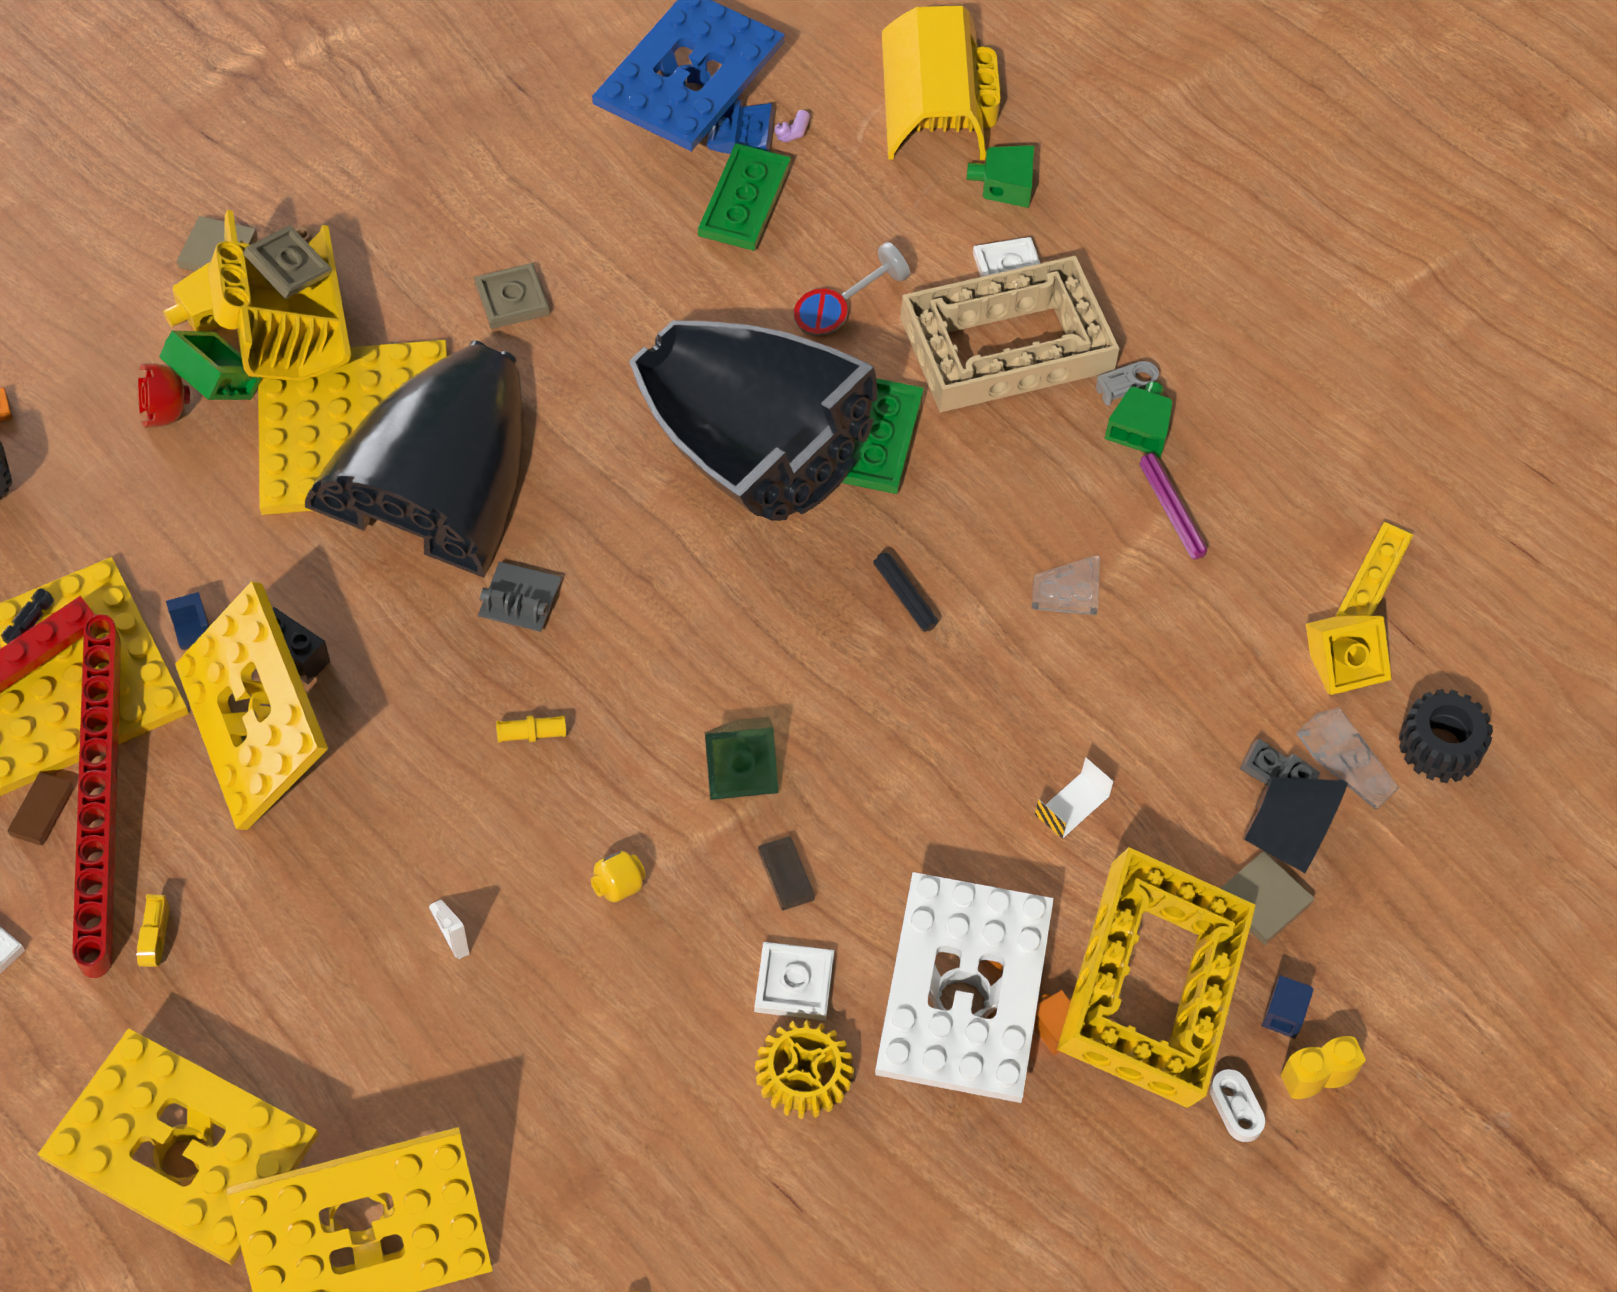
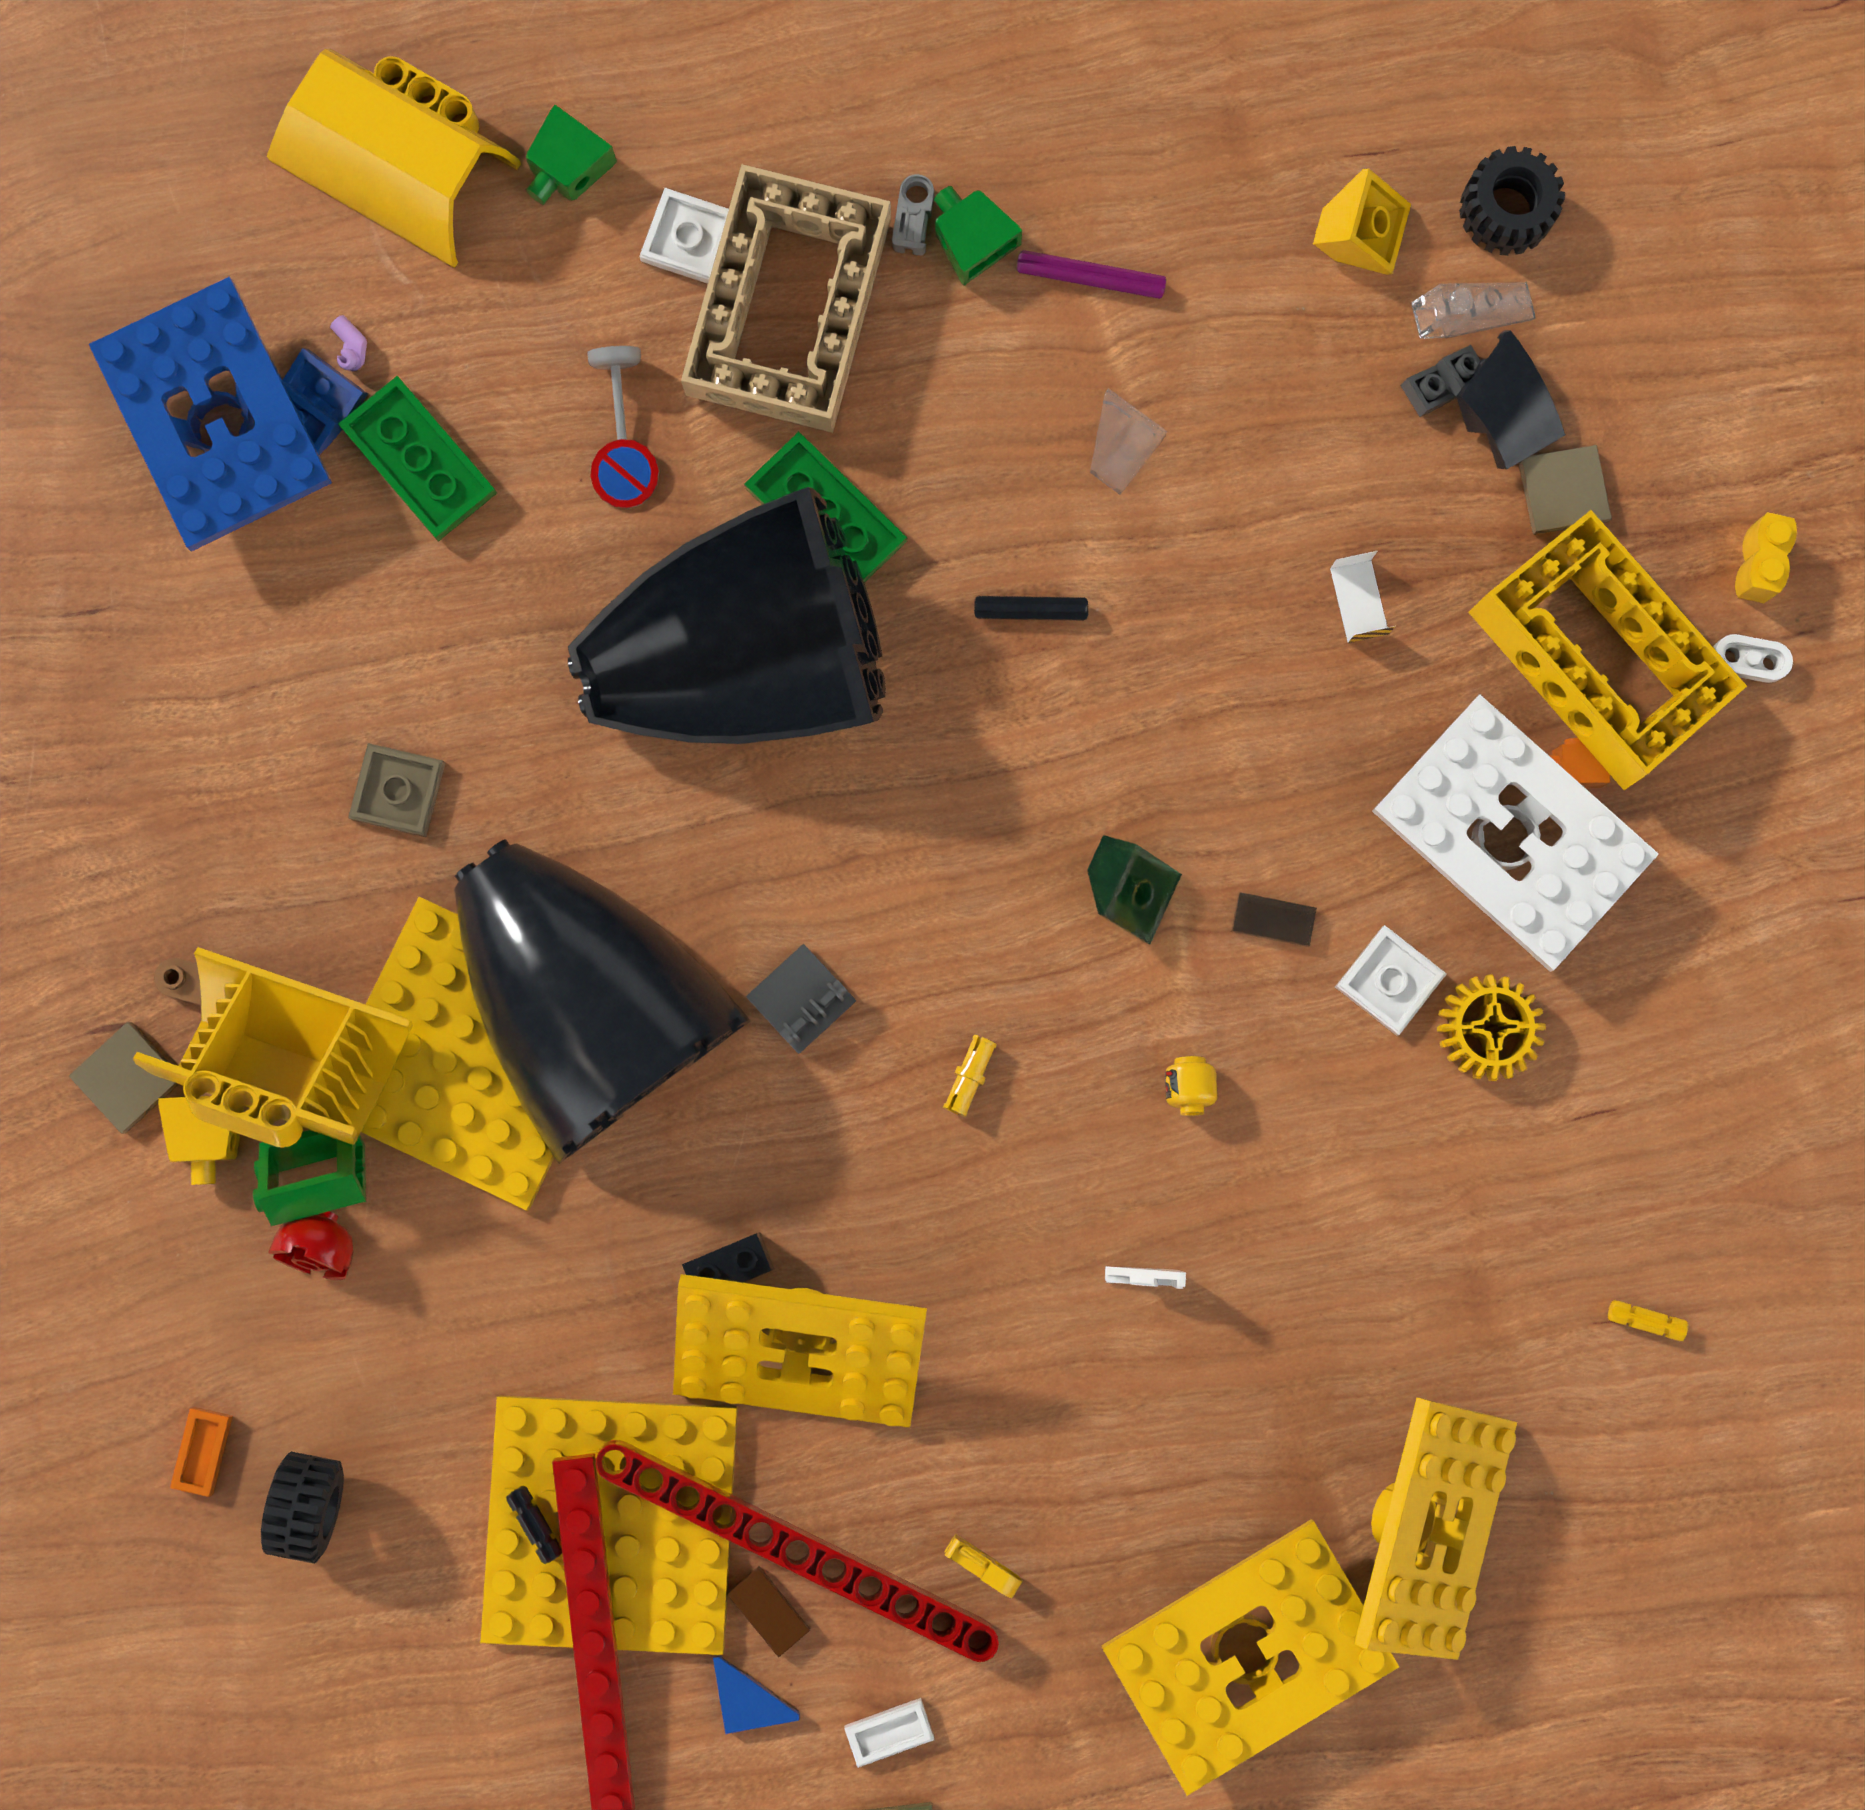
camera: 55 degrees left, 25 degrees up
(187, 618) = (631, 1354): dark blue panel -> none
(287, 261) = (244, 1025): dark tan tile -> none
(1287, 1007) = (1688, 547): dark blue panel -> none
(1376, 572) = (1290, 136): yellow tile -> none

